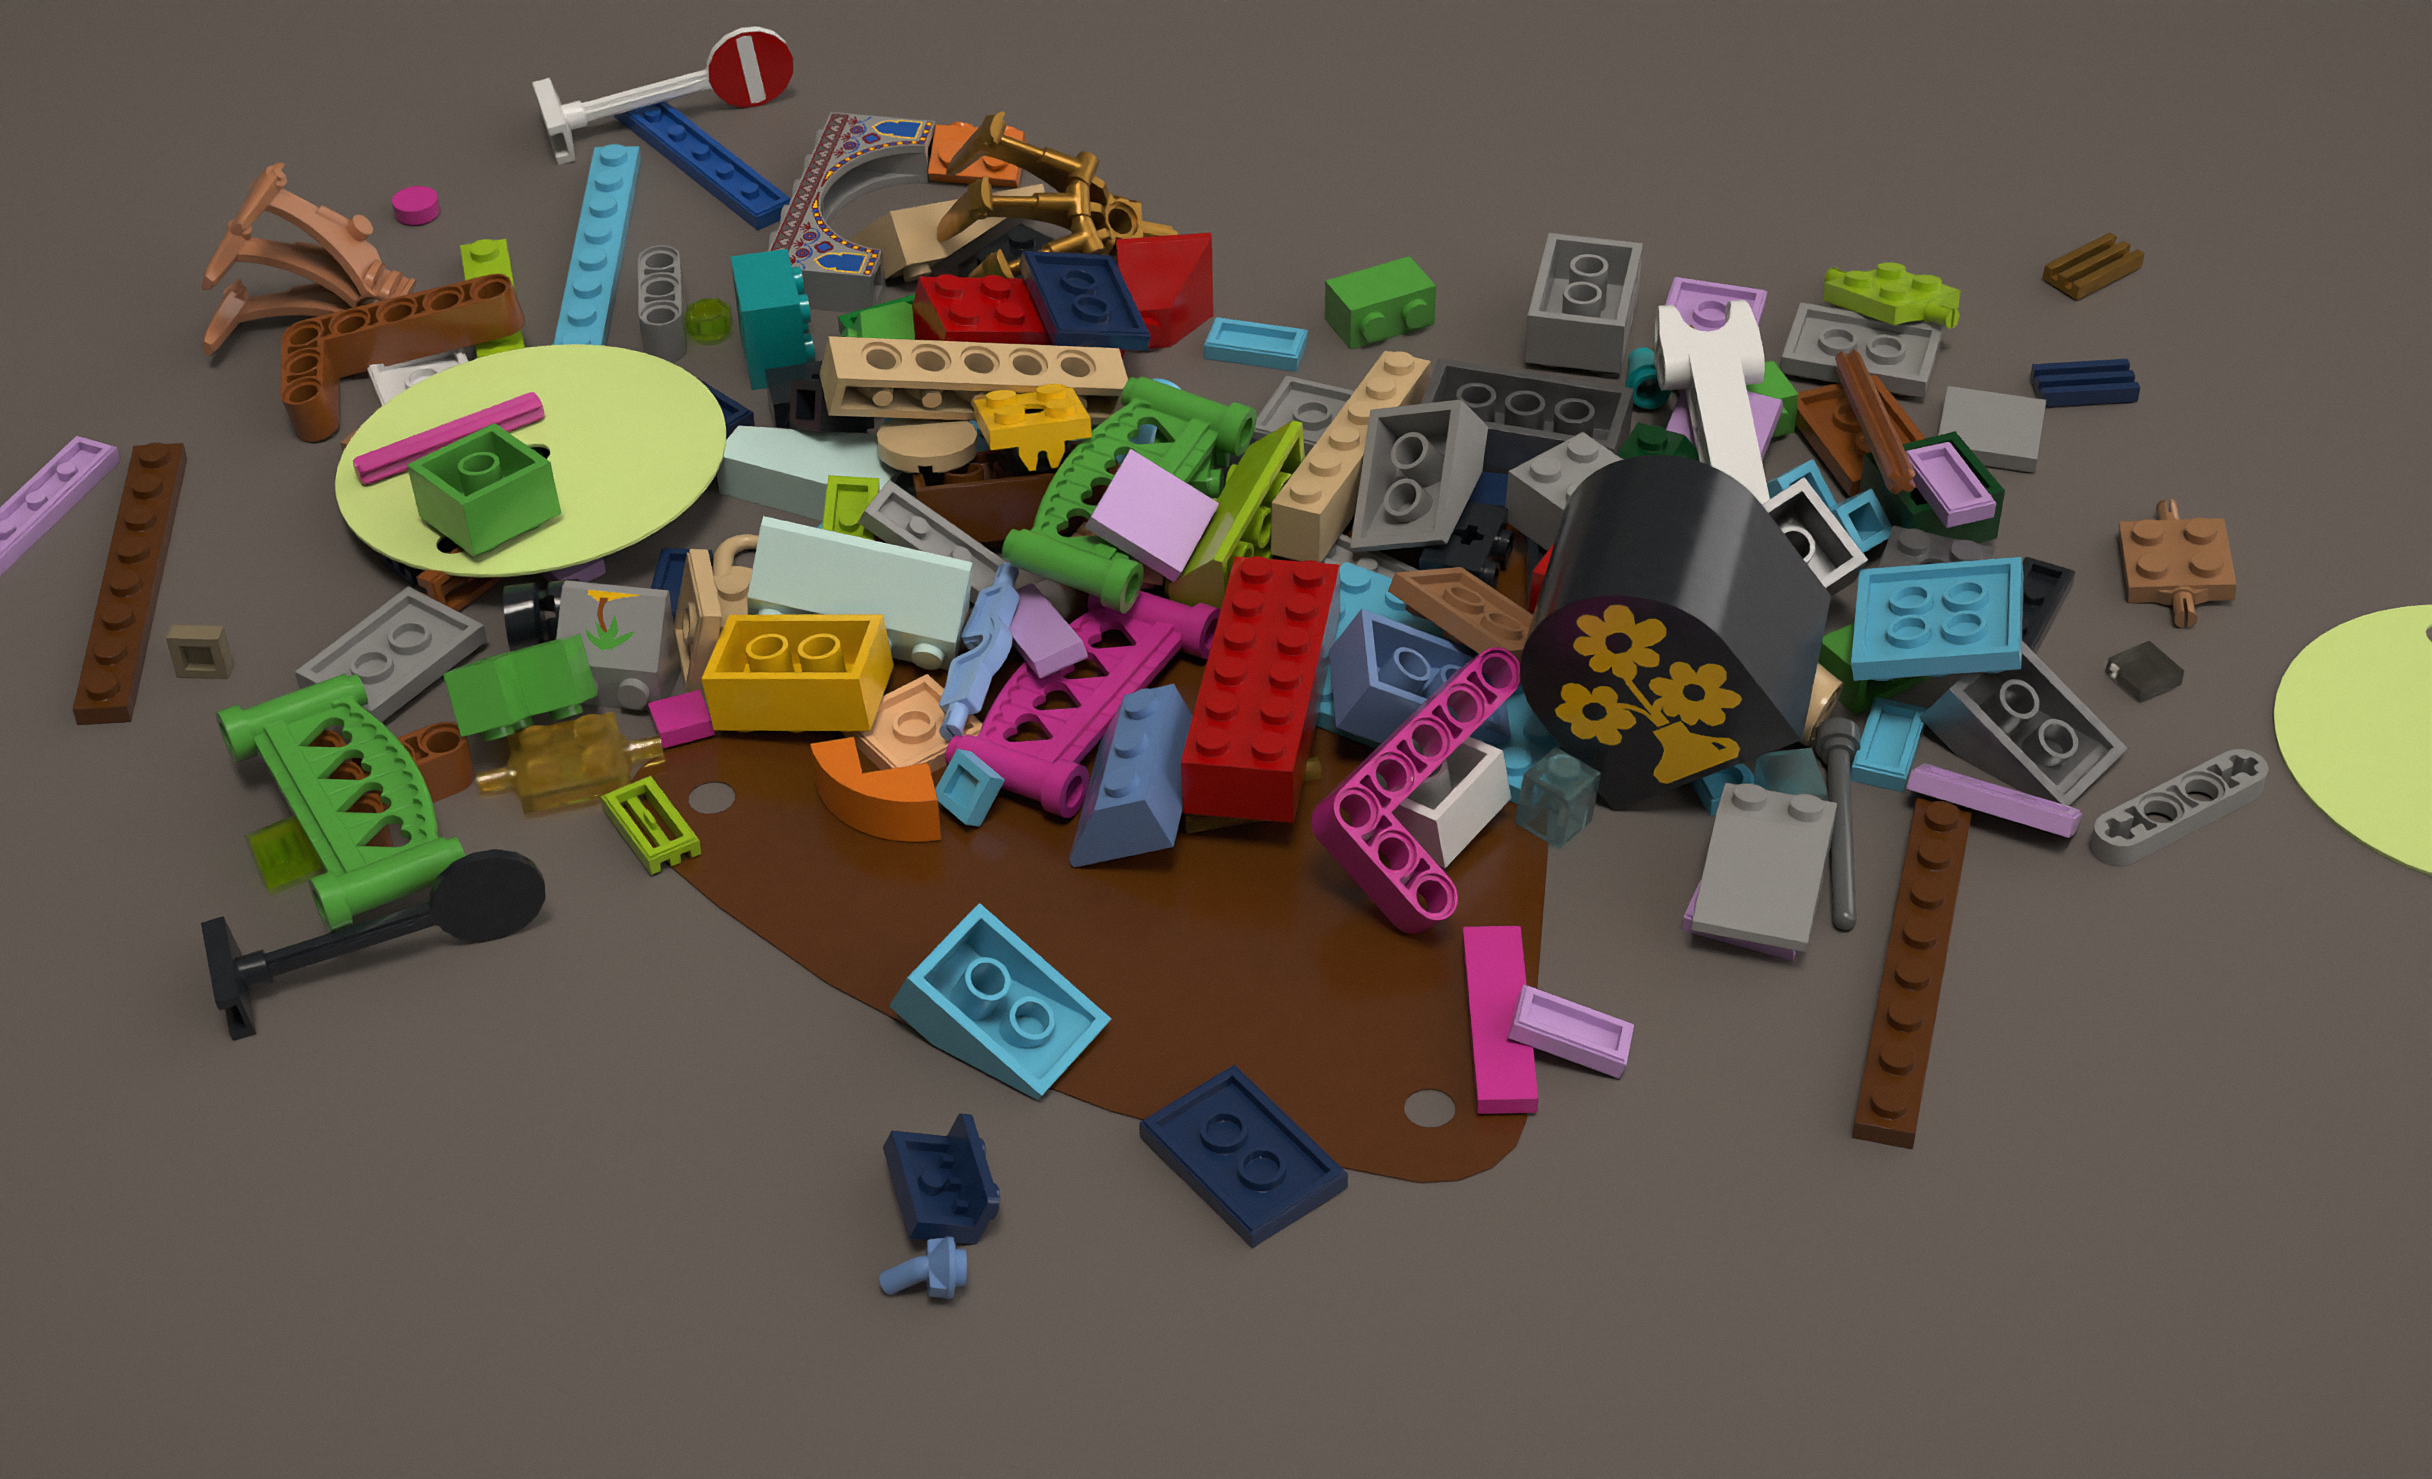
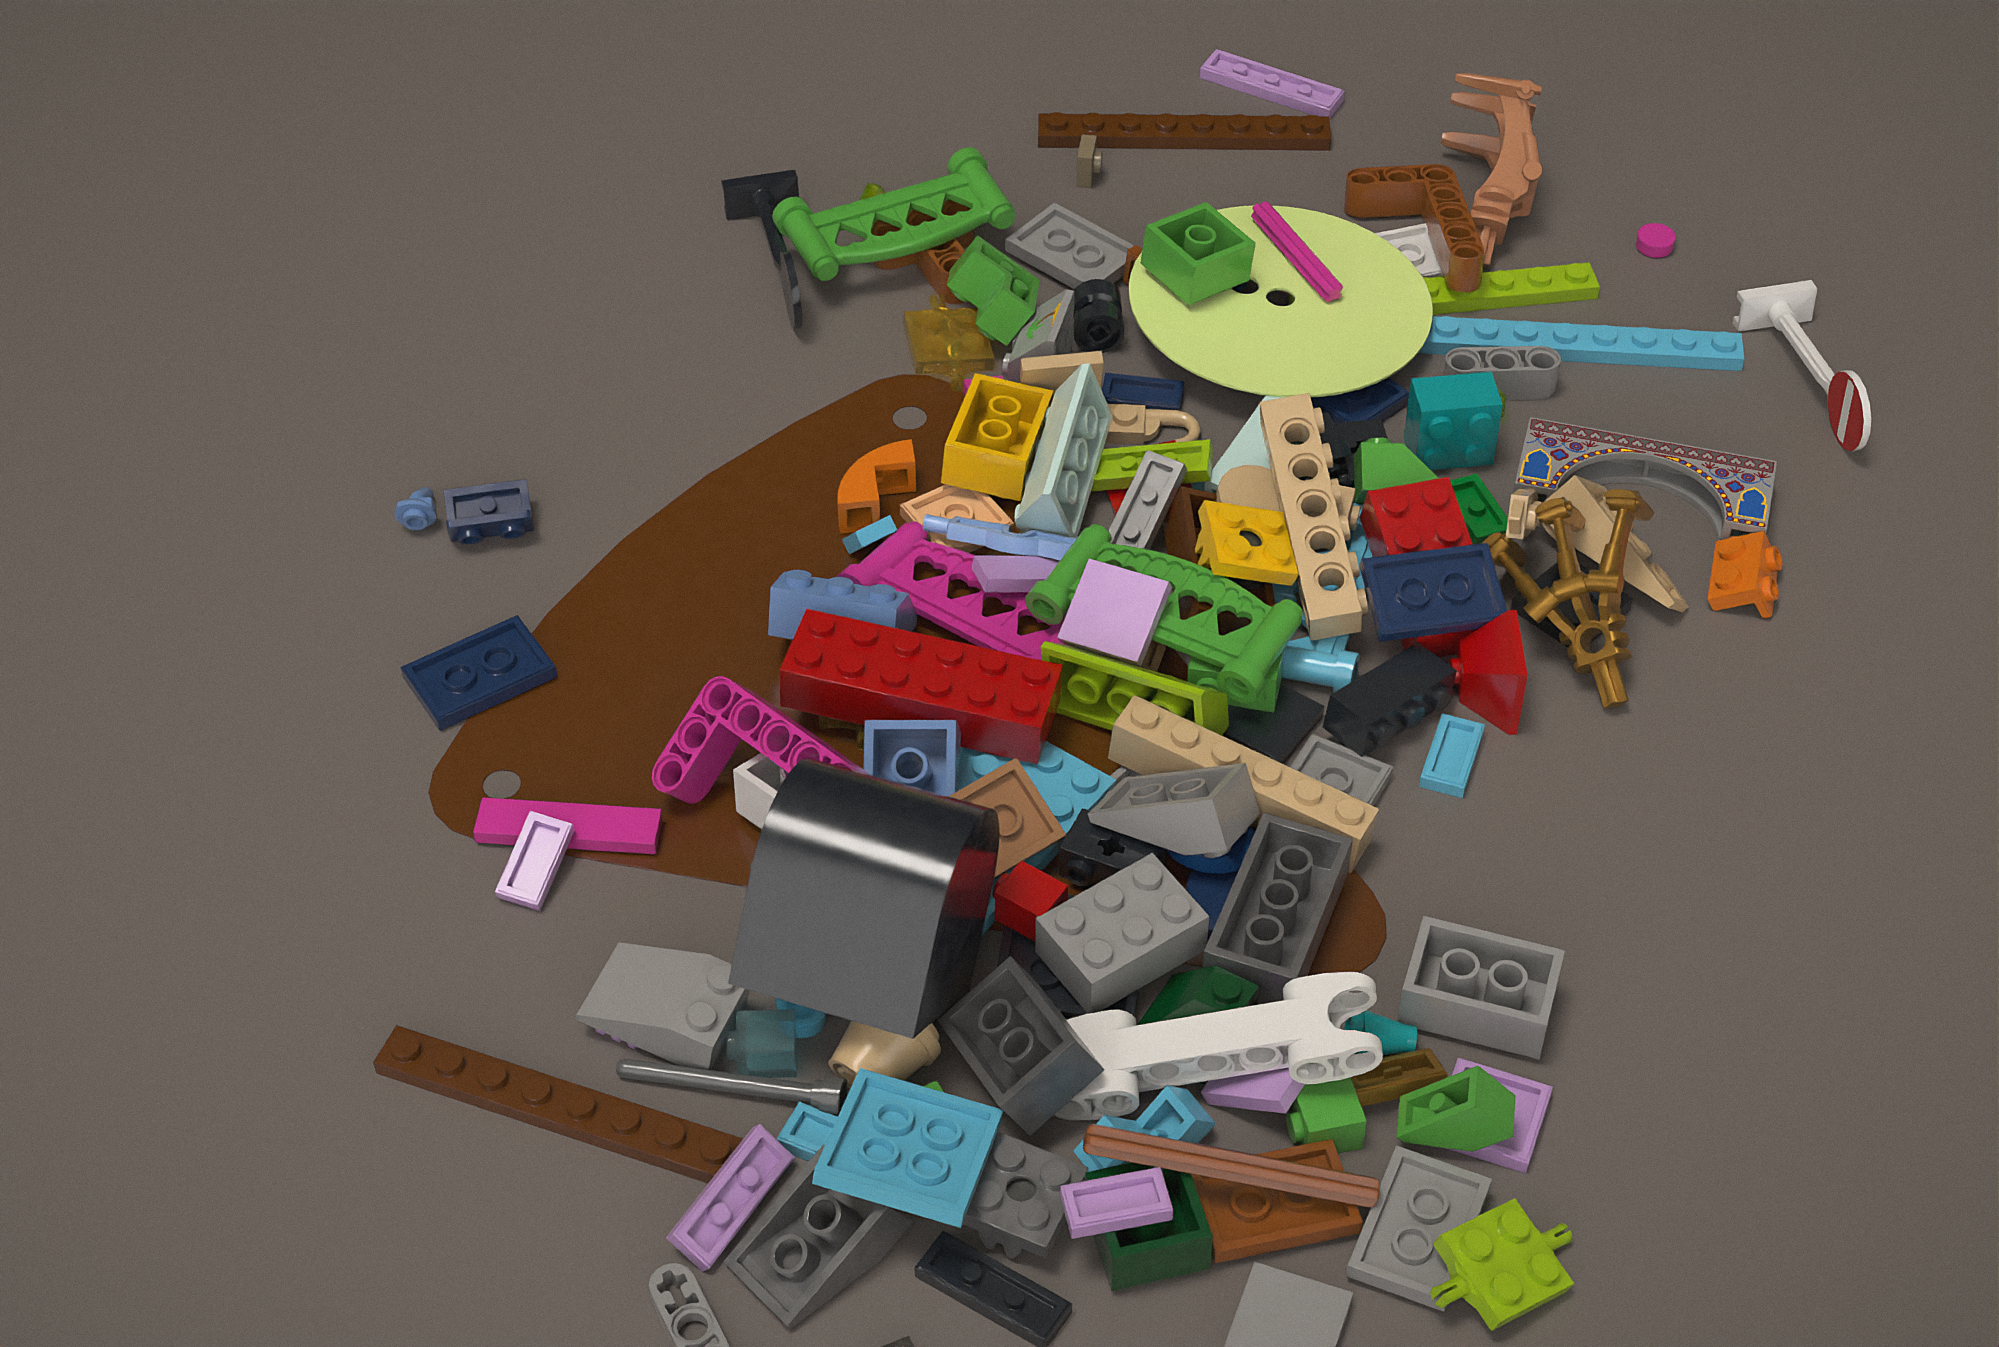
camera: 95 degrees right, 5 degrees up
(665, 849) = (877, 382): lime tile -> none
(707, 163) = (1740, 402): blue tile -> none
(949, 246) = (1522, 513): none -> tan plate
(999, 1006) = (639, 541): medium azure slope -> none
(1207, 363) = (1389, 699): none -> black brick
(1380, 302) = (1499, 840): bright green brick -> none
(1754, 284) = (1458, 1112): none -> bright green slope

